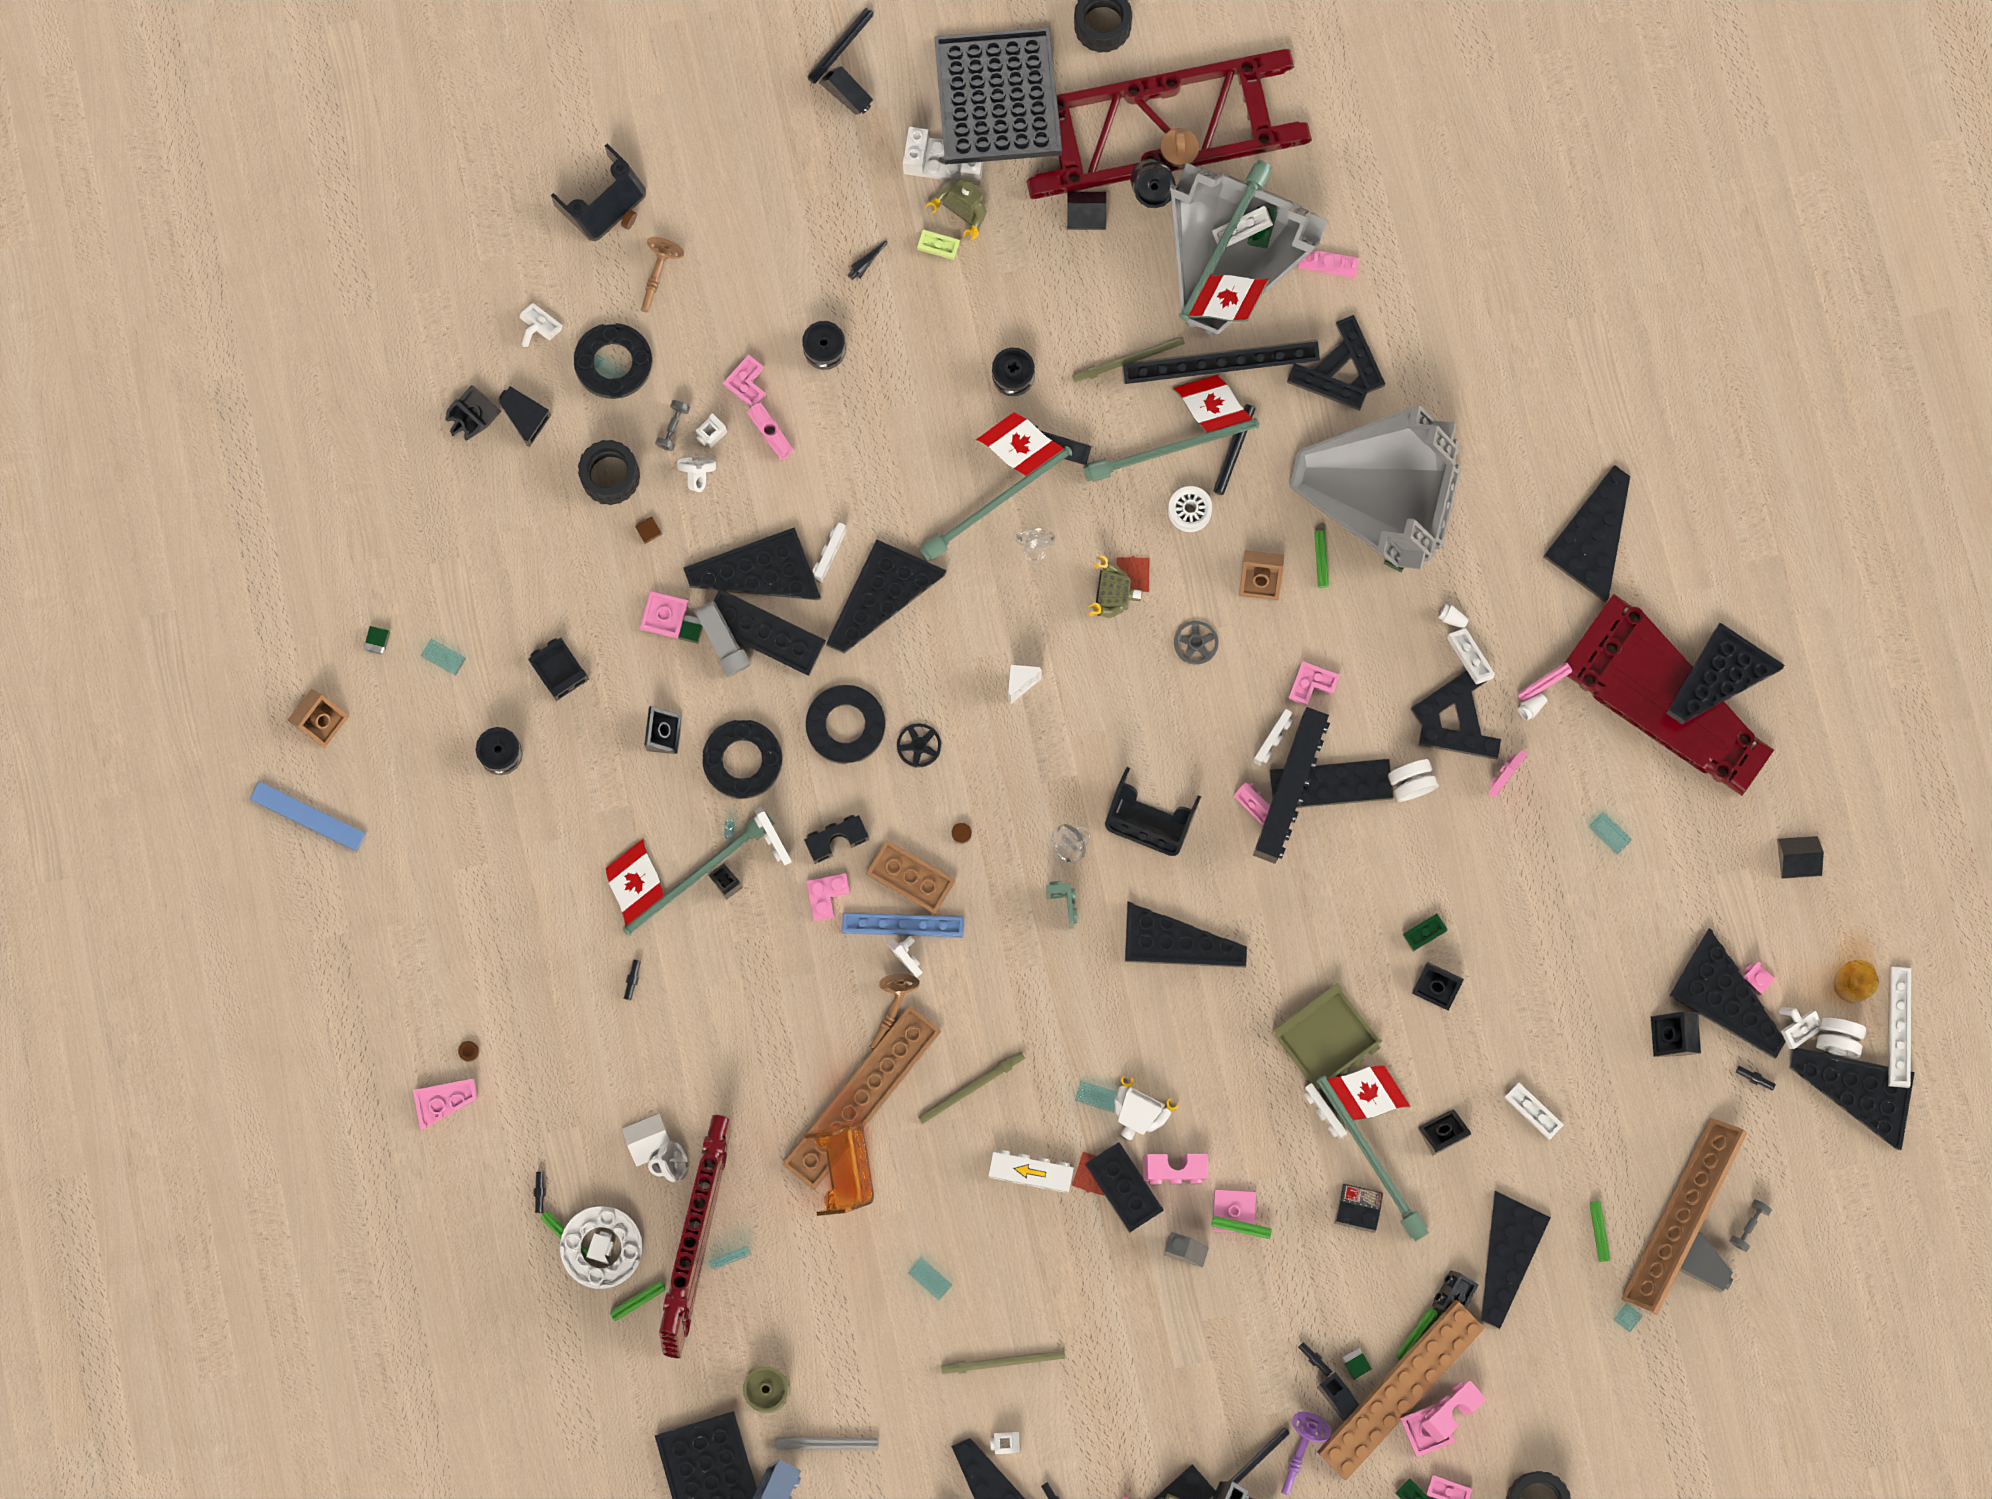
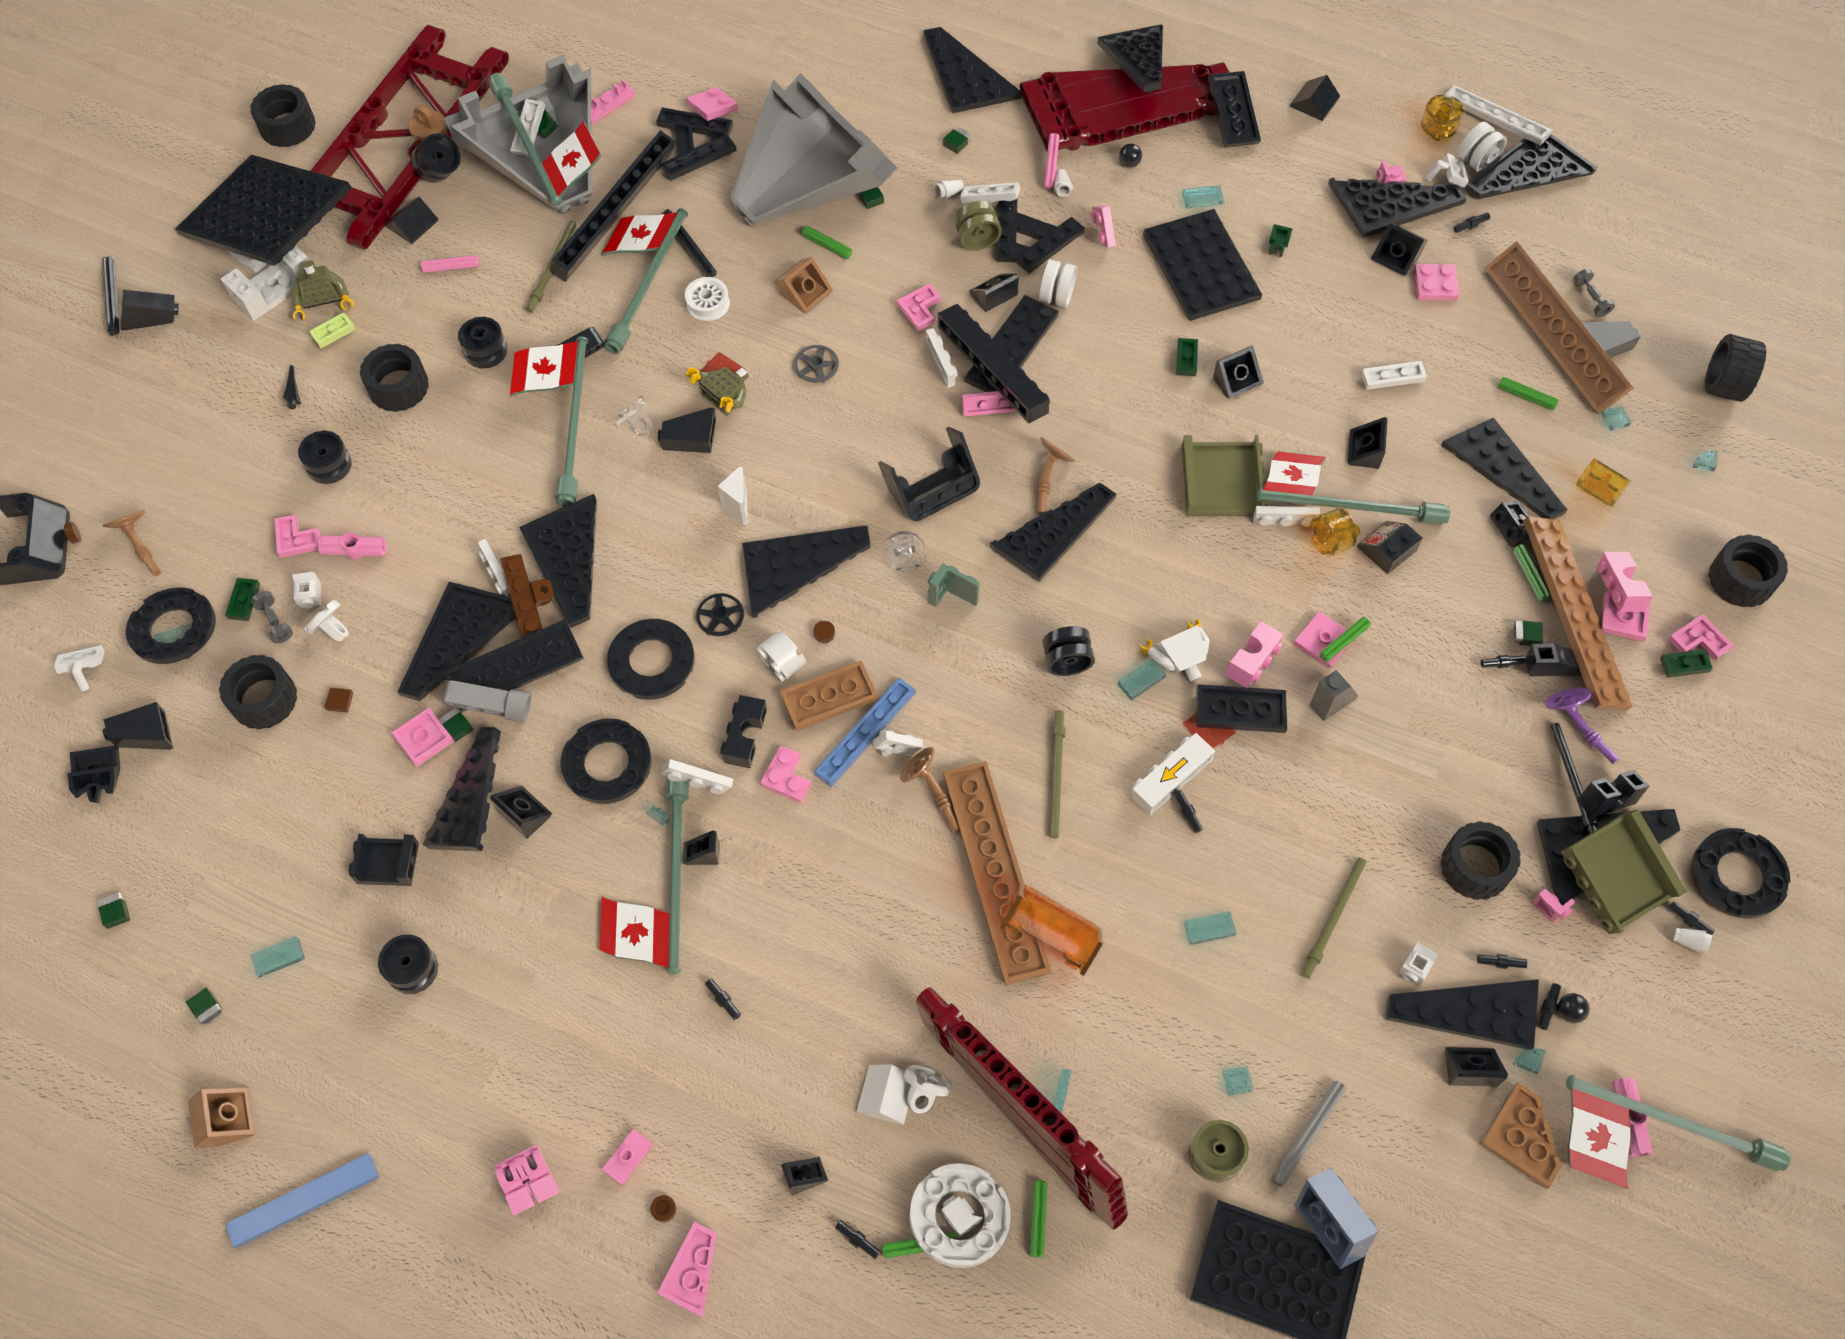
camera: 55 degrees left, 15 degrees down
(392, 519) = (113, 910): none -> dark green piece
(421, 949) = (526, 1176): none -> bright pink hips
(483, 1001) = (627, 1157): none -> bright pink plate
(554, 1126) = (804, 1174): none -> black slope
(625, 695) = (466, 808): none -> black wing
(670, 390) = (240, 601): none -> dark green plate
(822, 594) = (524, 595): none -> reddish brown plate
(829, 1371) = (1237, 1081): none -> clear light blue tile
(913, 819) = (781, 655): none -> white brick
(924, 312) = (388, 360): none -> black tyre
(999, 762) = (786, 564): none -> black wing
(1010, 1203) = (1188, 811): none -> black bar
(1055, 597) = (689, 432): none -> black slope
(1067, 276) = (450, 263): none -> bright pink axle
(1070, 1029) = (1068, 651): none -> black wheel
(1145, 1439) = (1494, 840): none -> black tyre
(1244, 893) = (1054, 453): none -> medium nougat dish
(1333, 1158) = (1334, 531): none -> clear yellow brick
(1375, 730) = (996, 290): none -> black slope
(1390, 352) = (712, 103): none -> bright pink plate
(1423, 672) = (977, 225): none -> olive wheel
(1513, 584) = (956, 140): none -> dark green piece
(1535, 880) = (1202, 264): none -> black plate
(1543, 1342) = (1603, 482): none -> clear yellow brick
(1606, 743) = (1130, 155): none -> black piece
(1611, 927) = (1279, 238): none -> dark green plate
(1638, 1414) = (1706, 460): none -> clear light blue tile
(1665, 1087) = (1436, 282): none -> bright pink plate
(1721, 797) = (1234, 109): none -> black plate
(1740, 1386) = (1735, 367): none -> black tyre

